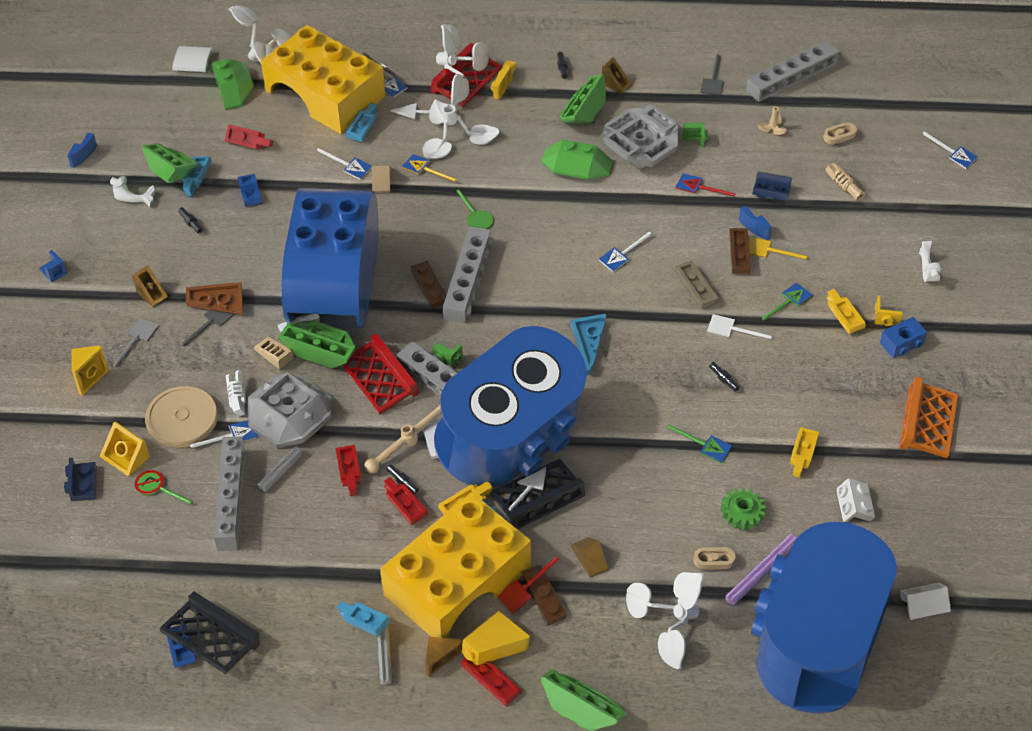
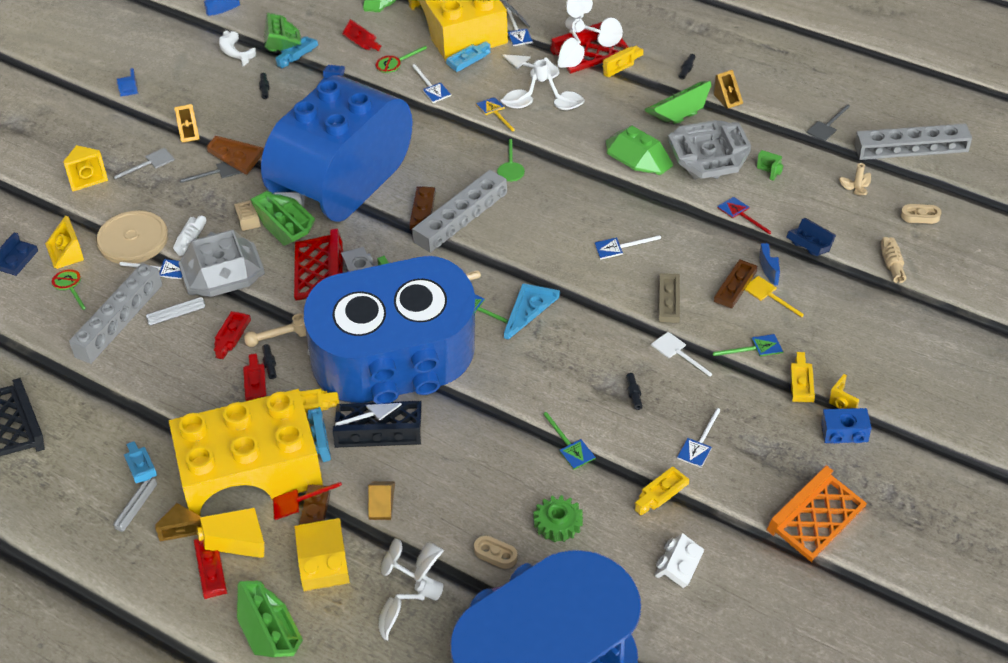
camera: 30 degrees right, 5 degrees down
(293, 155) = (391, 63): none -> bright green piece
(381, 179) = (449, 106): tan slope -> none
(581, 623) = (321, 554): none -> yellow slope
(803, 407) = (695, 451): none -> piece
(930, 270) = (922, 373): white animal -> none

